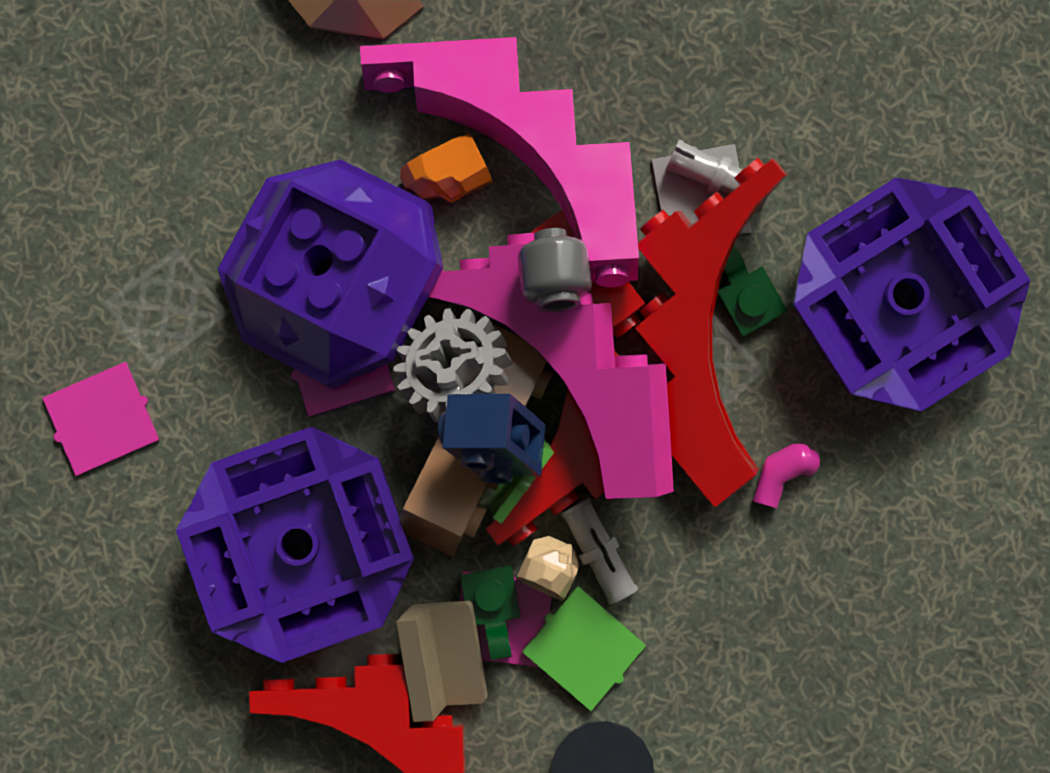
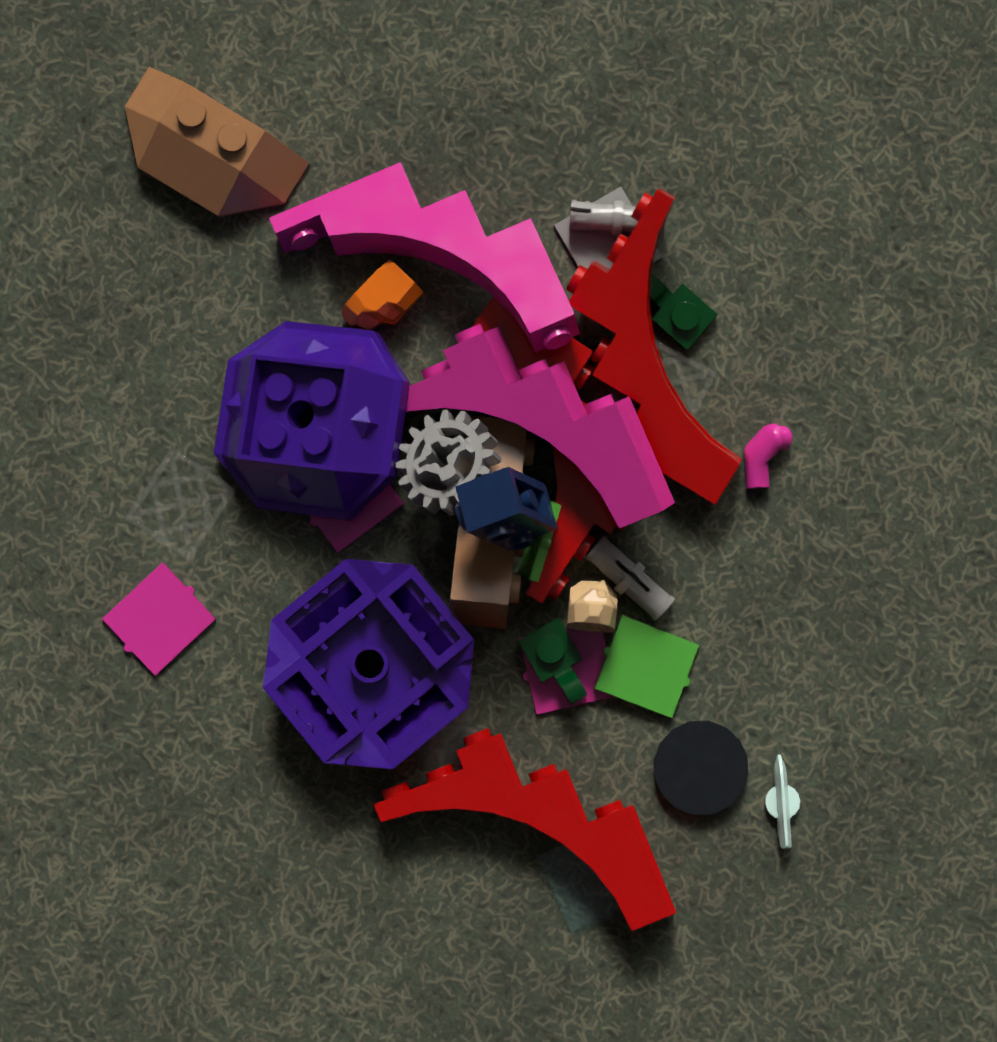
camera: 15 degrees left, 0 degrees up
(441, 657) = (527, 717): dark tan panel -> none
(554, 270) = (507, 350): dark grey head -> none
(963, 281) = (826, 212): dark purple piece -> none

